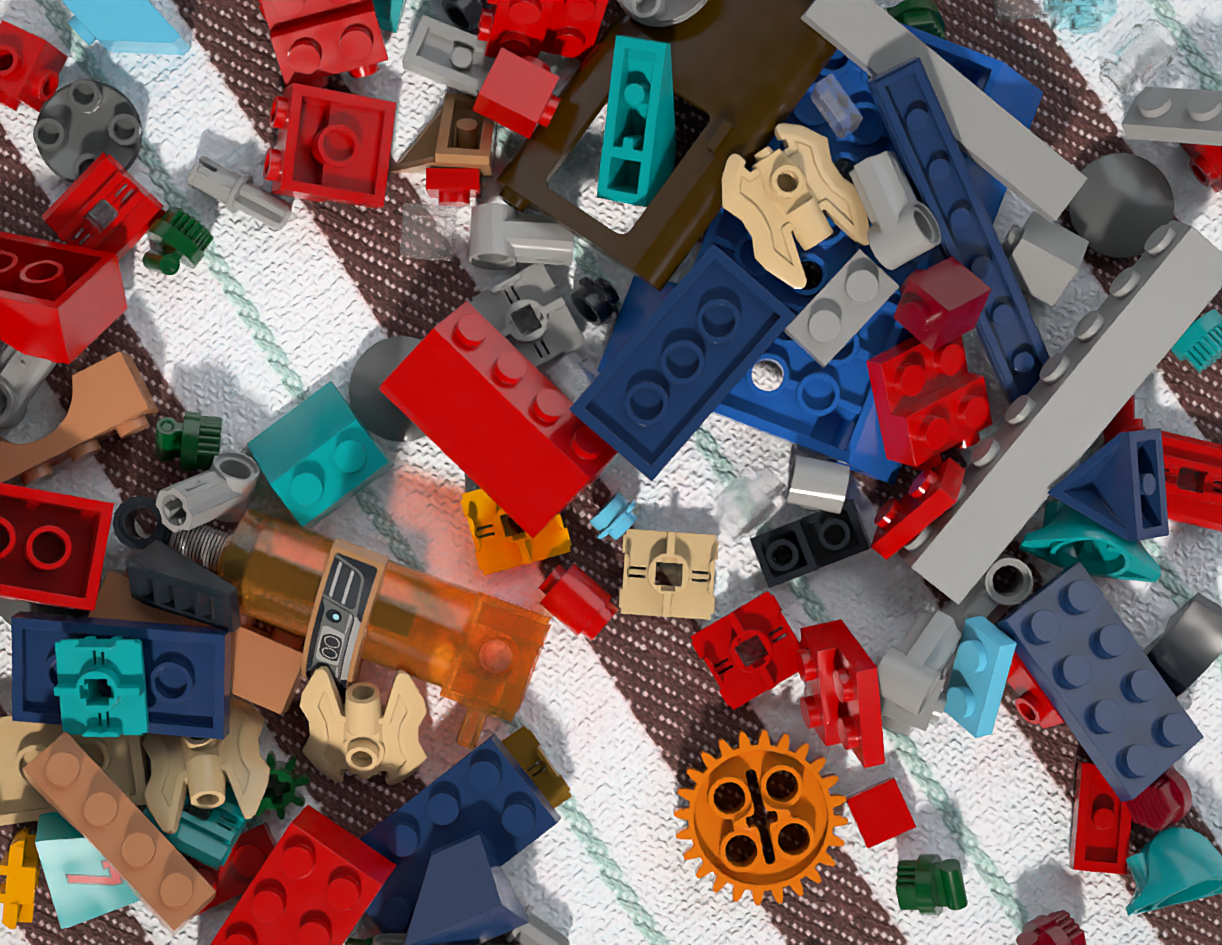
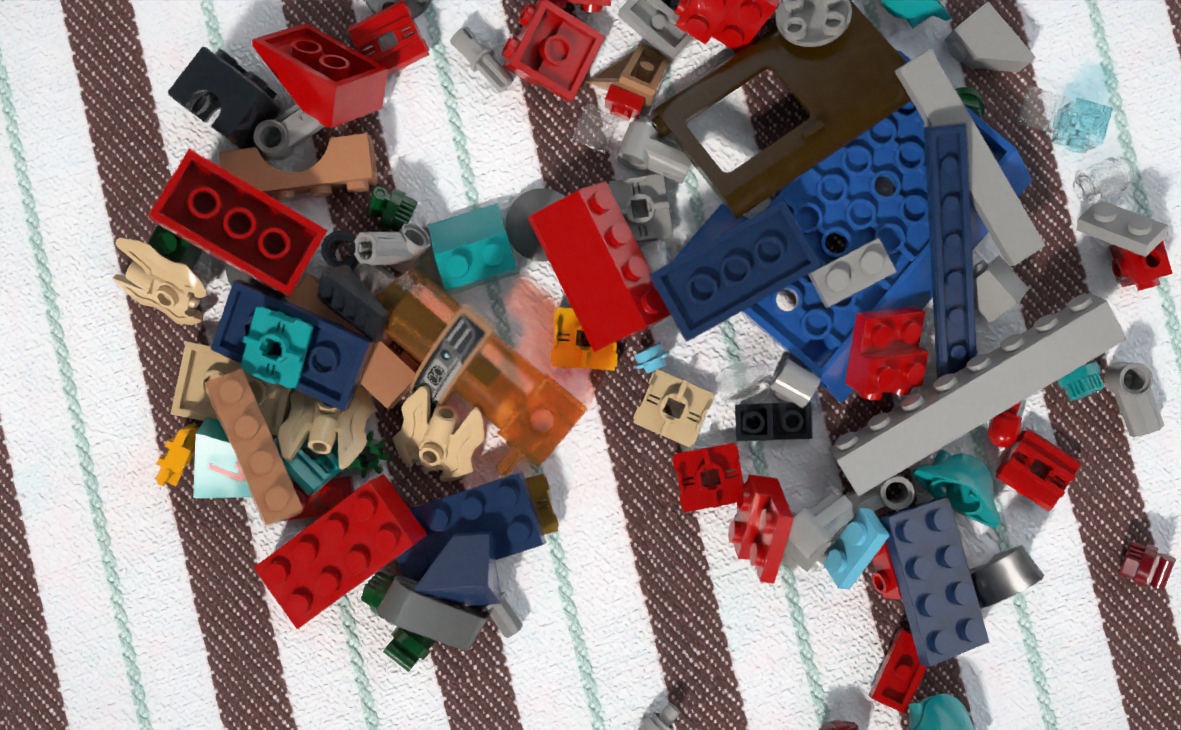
camera: 20 degrees right, 0 degrees up
(177, 240) = (431, 76): dark green piece -> none
(518, 93) = (688, 56): brick -> none
(577, 601) = (607, 404): red brick -> none
(595, 300) = (689, 212): black plate -> none
(638, 123) = (761, 103): teal slope -> none
(789, 197) = (844, 189): tan piece -> none
(806, 805) = (711, 592): orange gear -> none
(836, 106) = (897, 138): clear tile -> none
(880, 812) = (756, 614): red tile -> none
(899, 222) = (911, 229): light grey piece -> none
(926, 500) = (863, 419): red plate -> none
(930, 885) = (773, 674): dark green piece -> none
(941, 302) = (920, 292): dark red brick -> none
(1121, 204) = (1057, 273): dark grey dish -> none
(1122, 486) = (995, 456): dark blue slope -> none
(1162, 801) = (946, 675): dark red piece -> none

